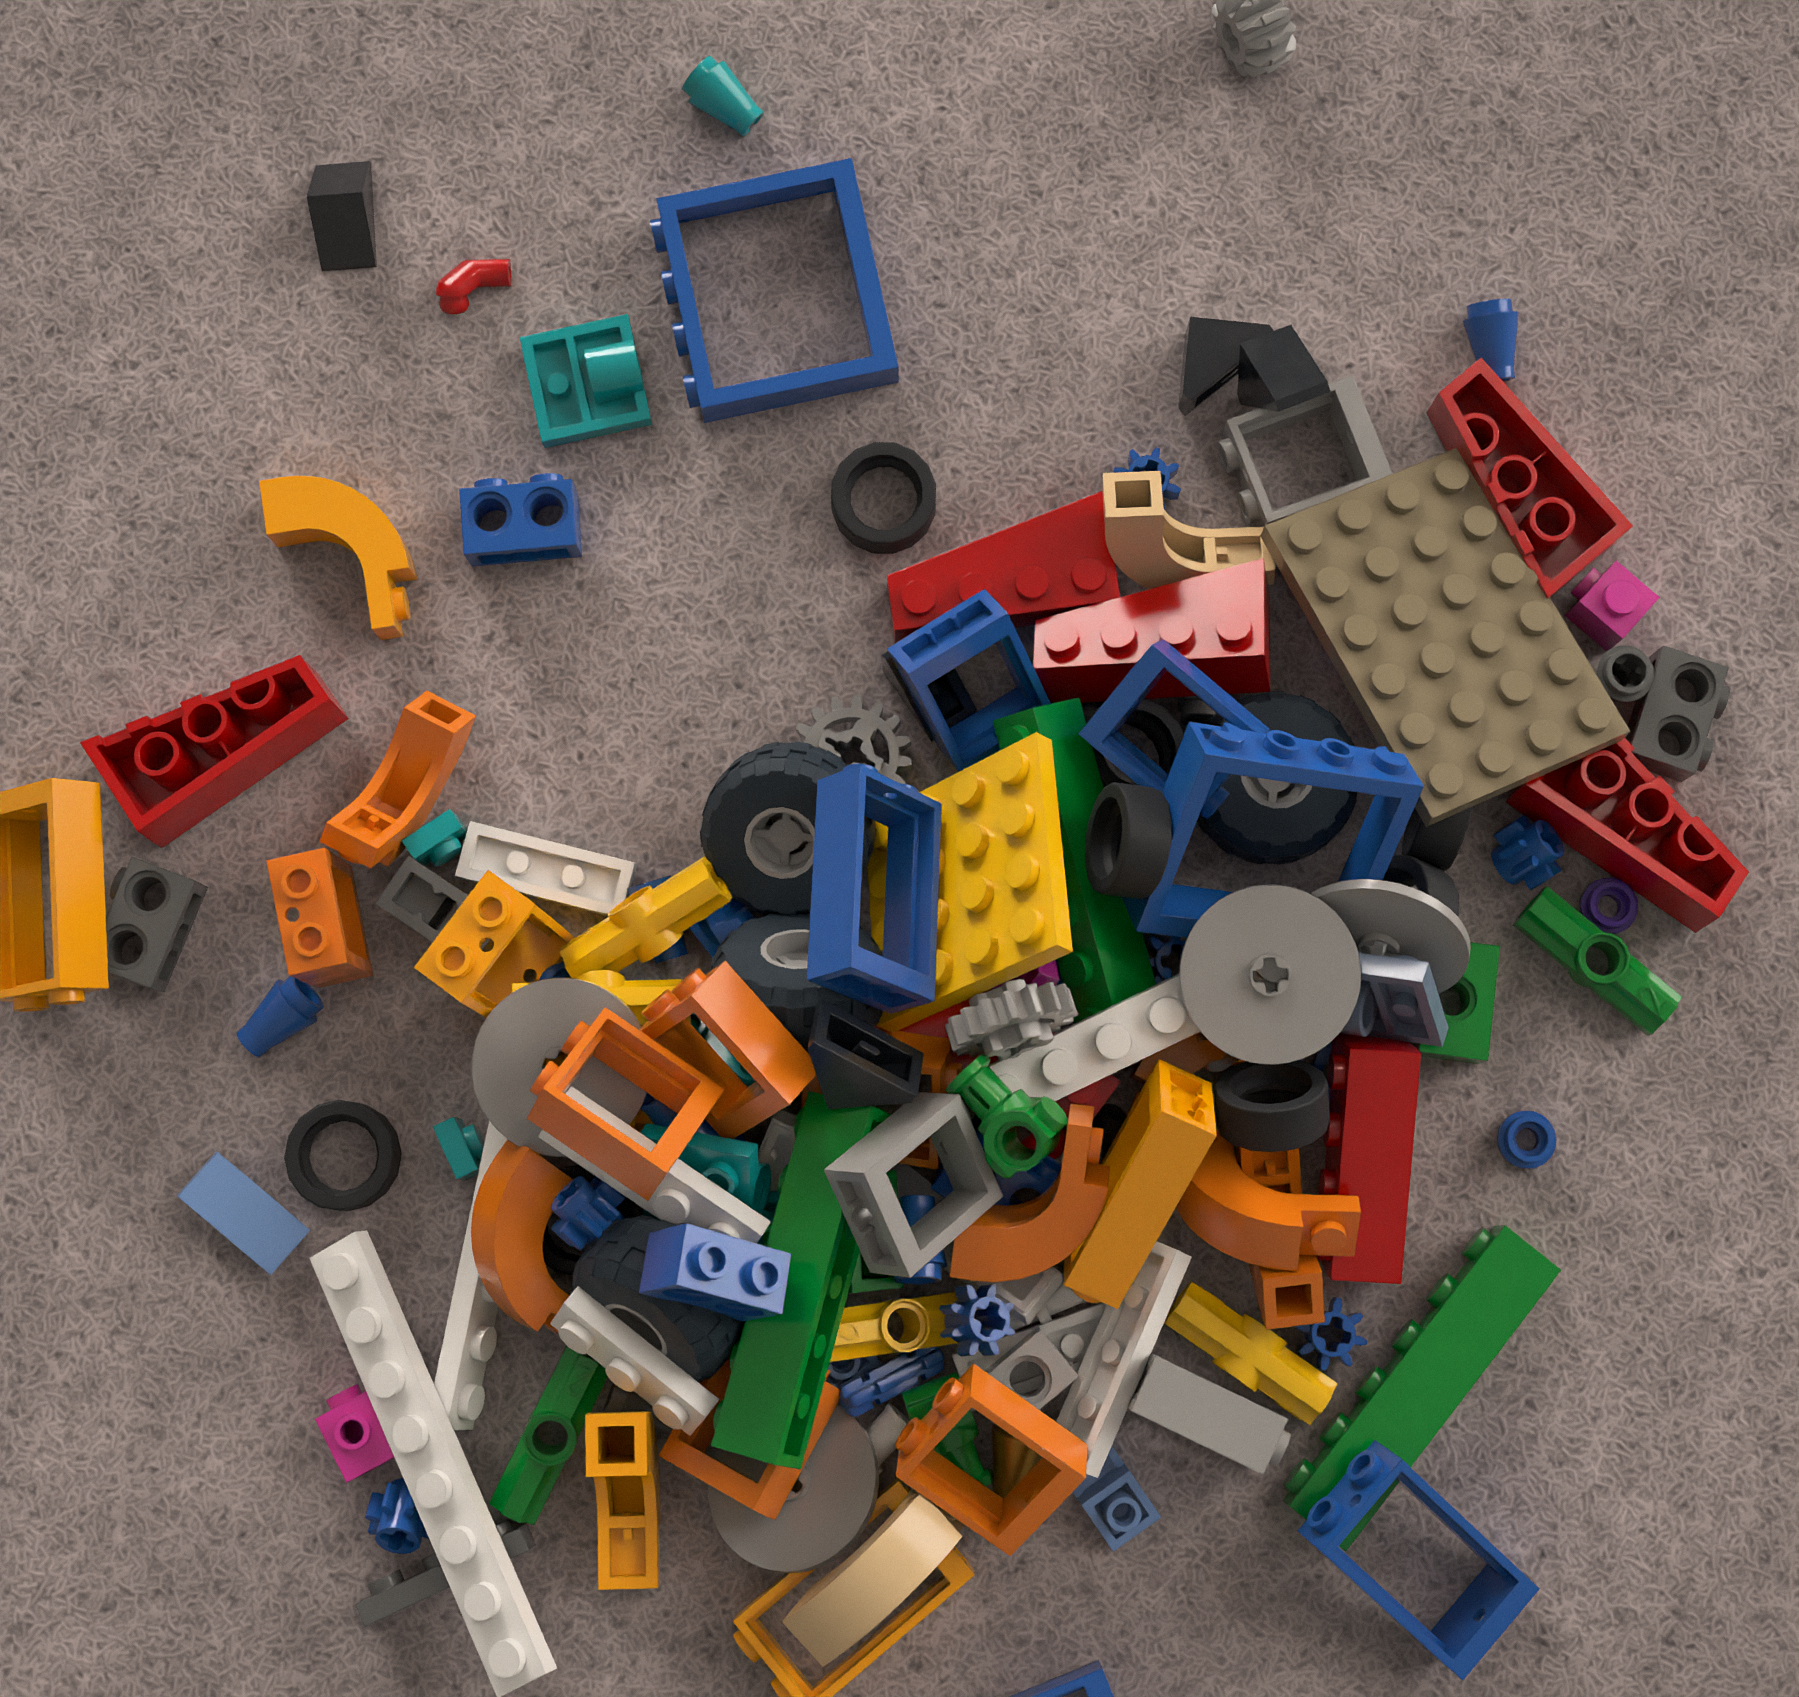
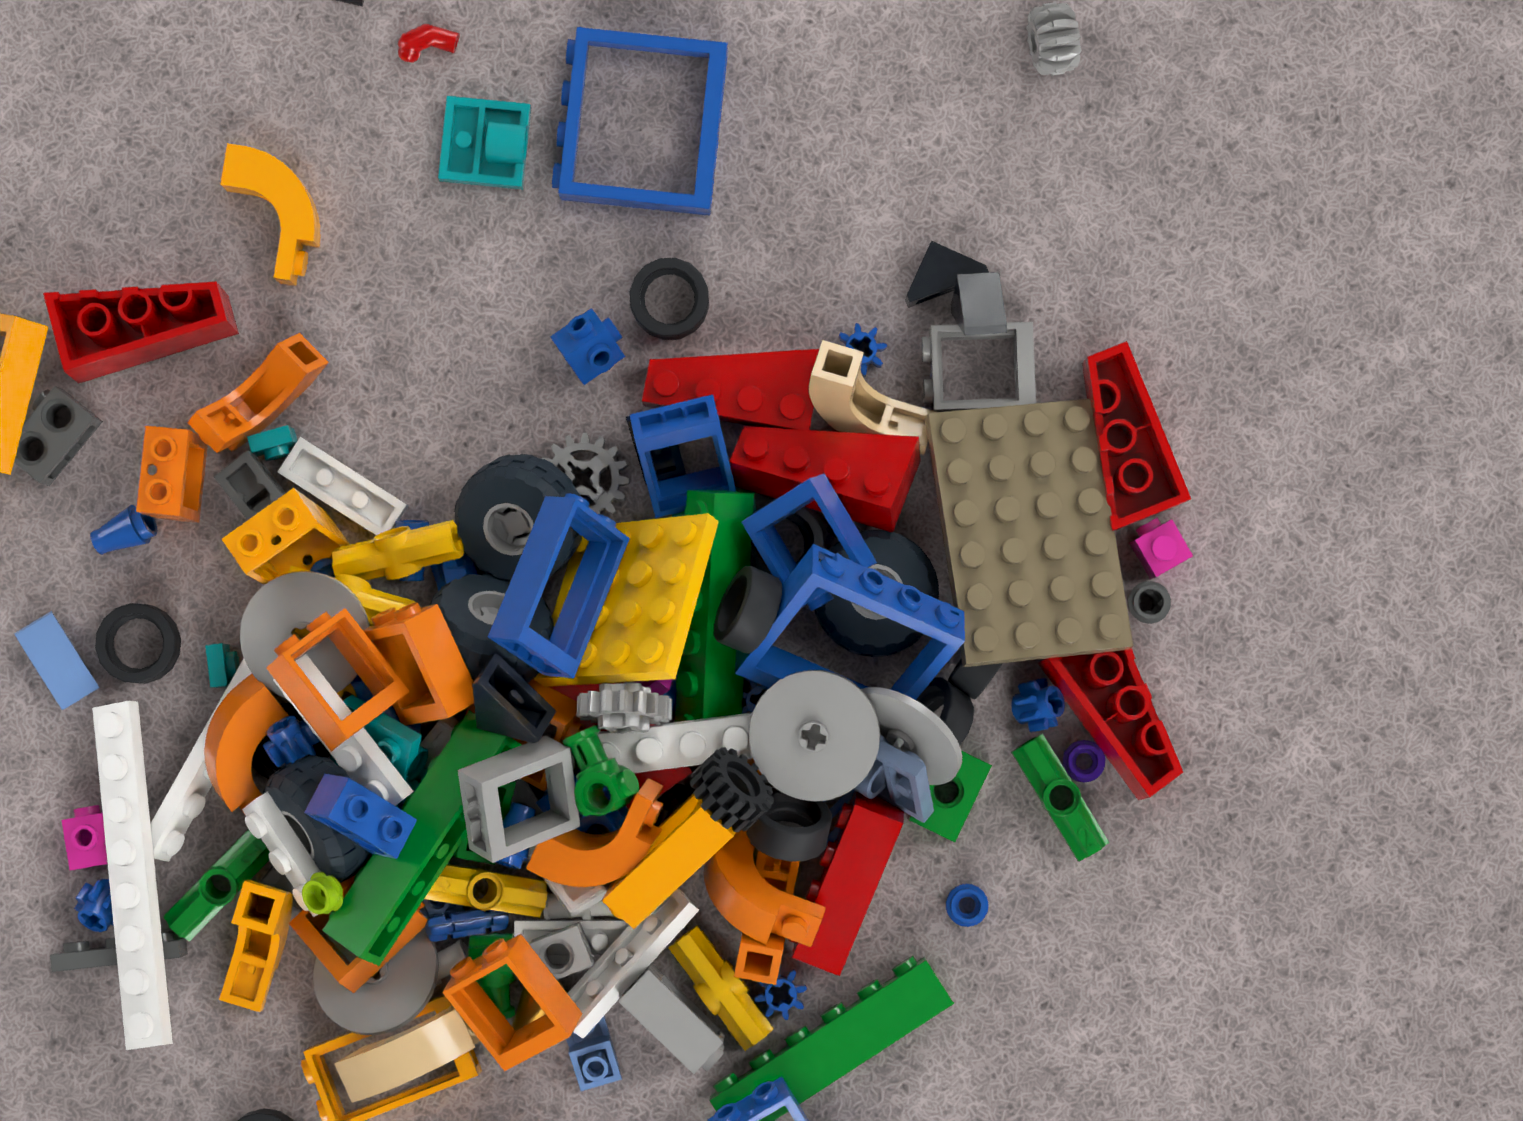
camera: 20 degrees right, 5 degrees up
(520, 536) = (402, 241): blue brick -> none
(696, 1396) = (322, 893): none -> lime plate
(802, 586) = (589, 345): none -> blue brick
(977, 1320) = (548, 904): blue gear -> none
(1190, 1077) = (732, 789): none -> black tyre
(1493, 334) = (1148, 325): blue cone -> none
(1687, 721) = (1170, 634): dark grey brick -> none

